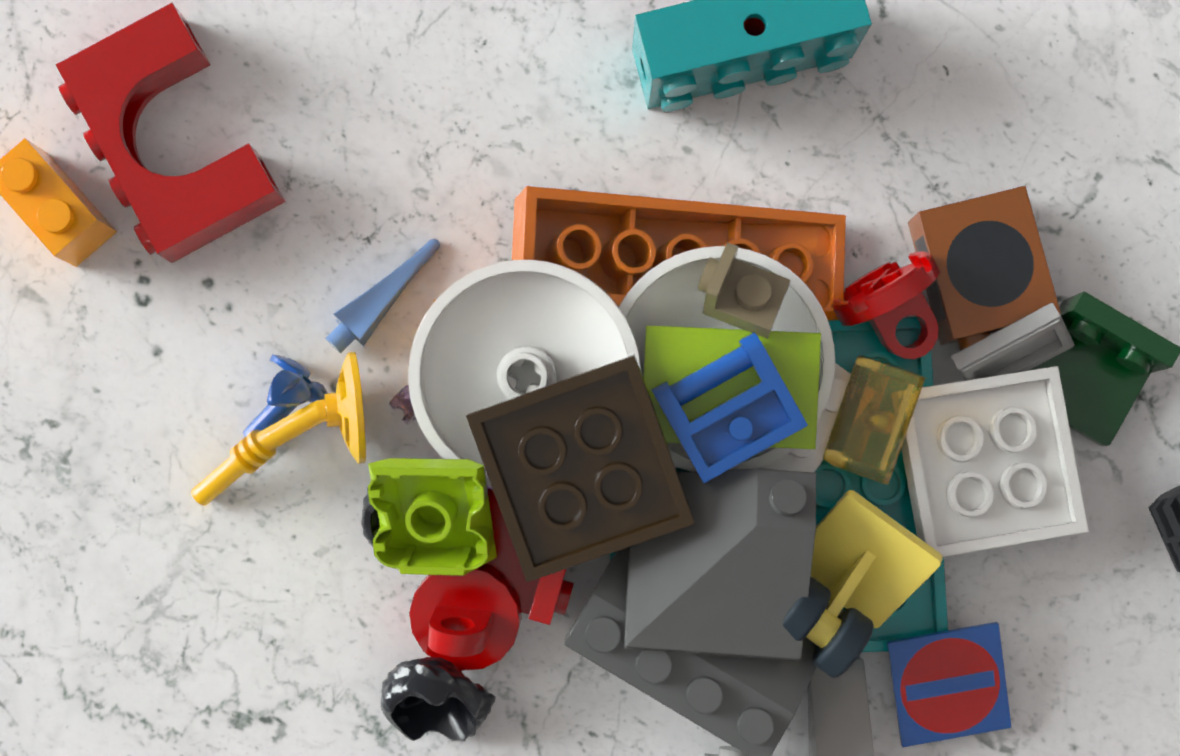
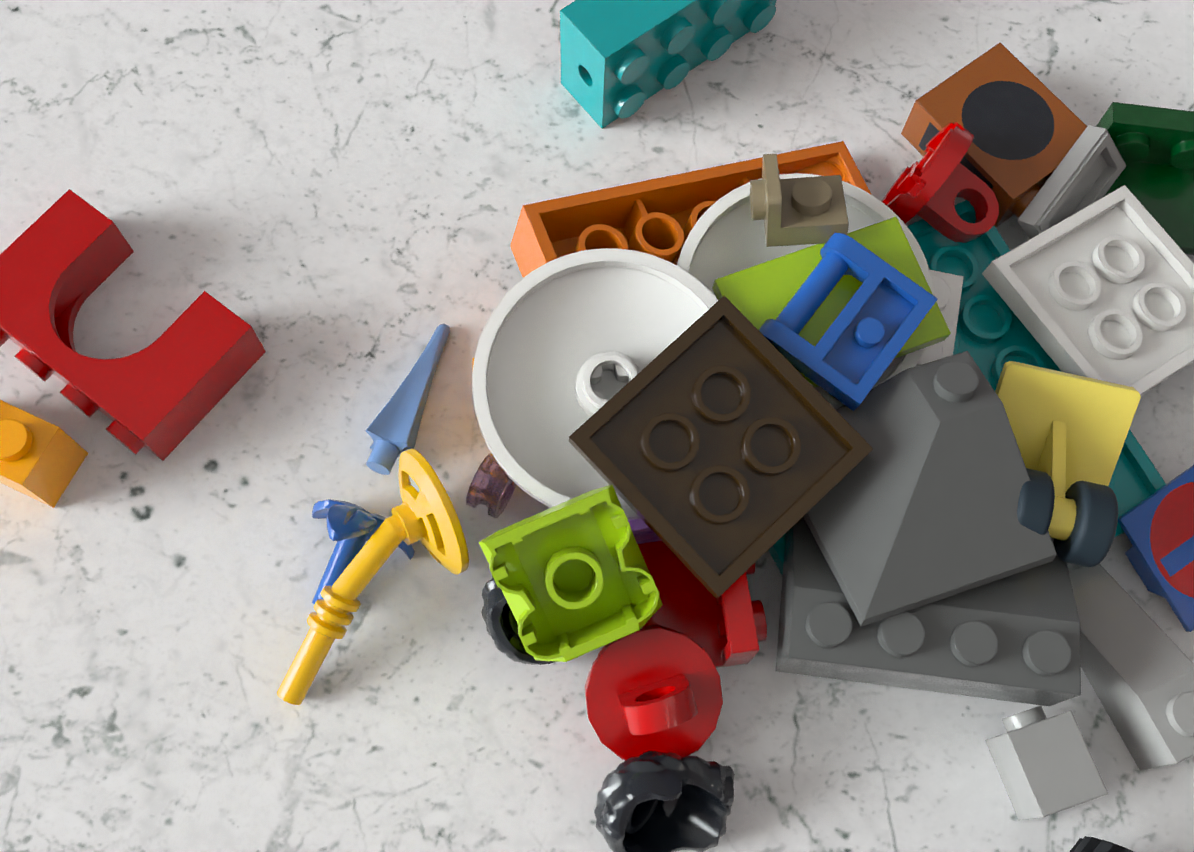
camera: 25 degrees left, 15 degrees down
(873, 418) = (985, 294): clear yellow slope -> none

